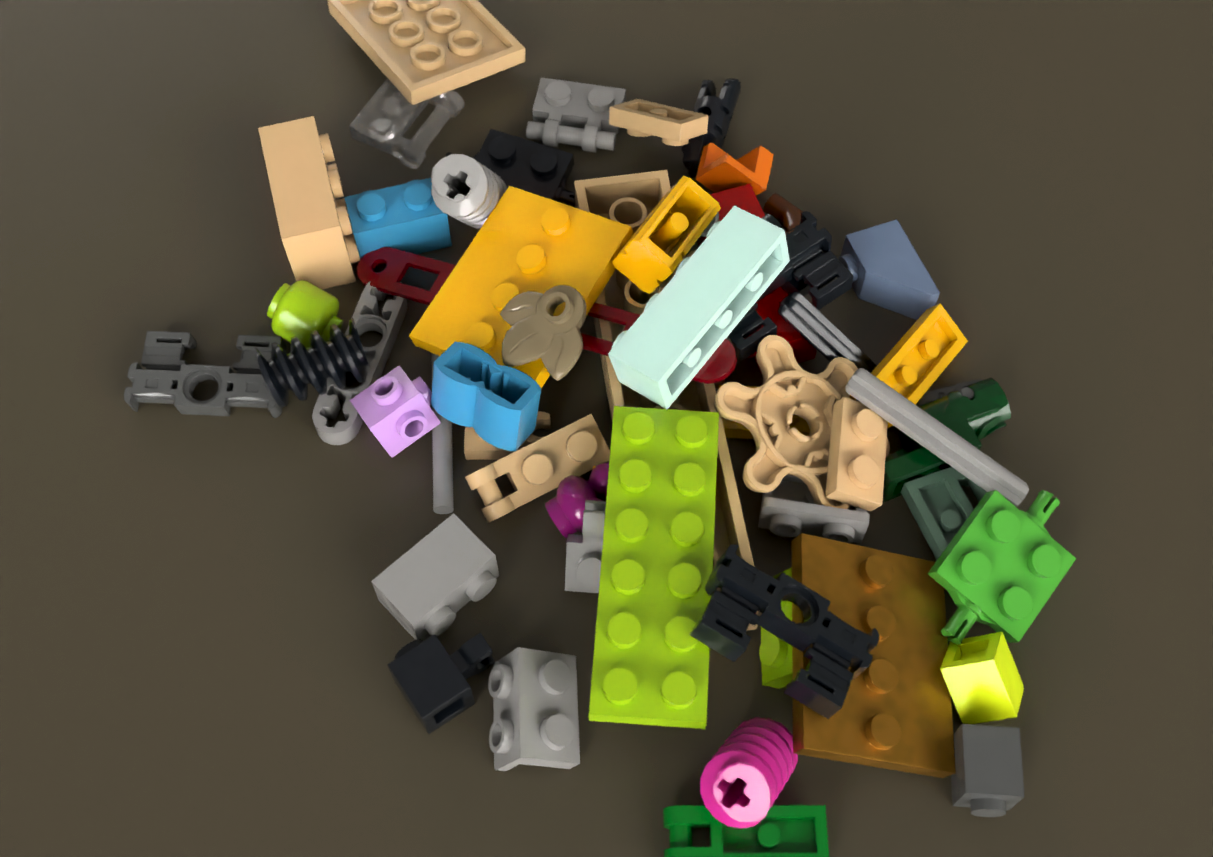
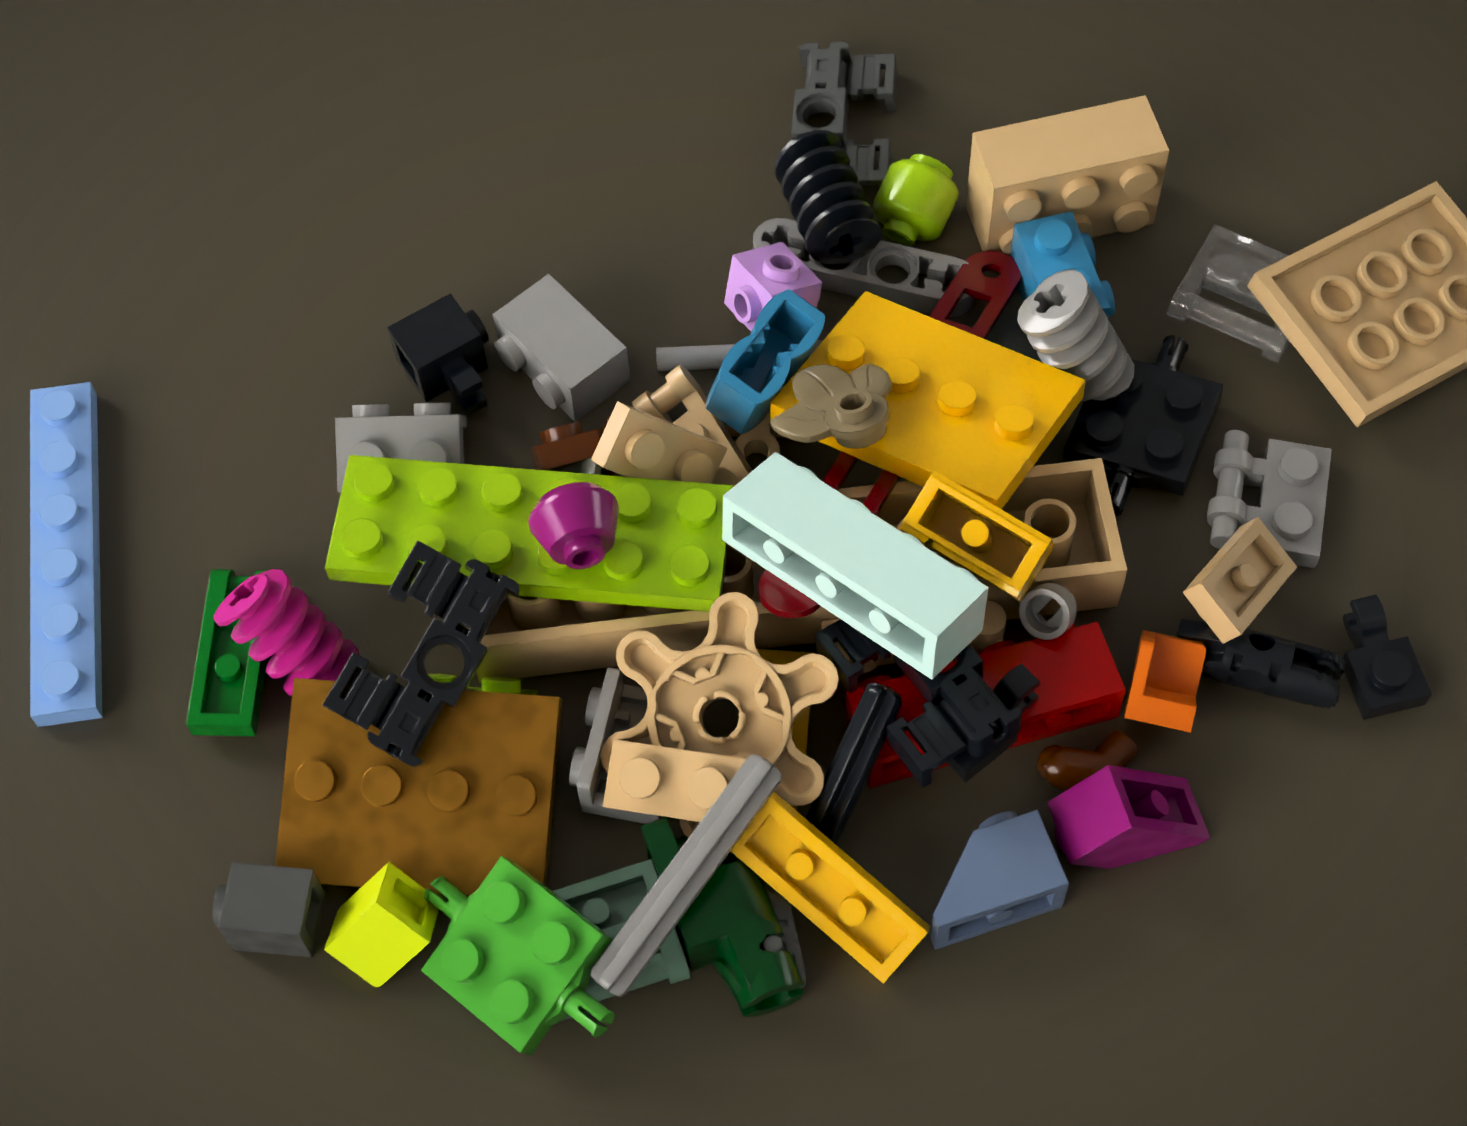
camera: 95 degrees right, 0 degrees up
(554, 551) = (565, 445): none -> reddish brown plate
(578, 466) = (656, 449): none -> tan plate
(681, 496) = (576, 523): none -> magenta cone
(698, 64) = (1380, 671): none -> black plate
(836, 198) = (1126, 817): none -> magenta slope

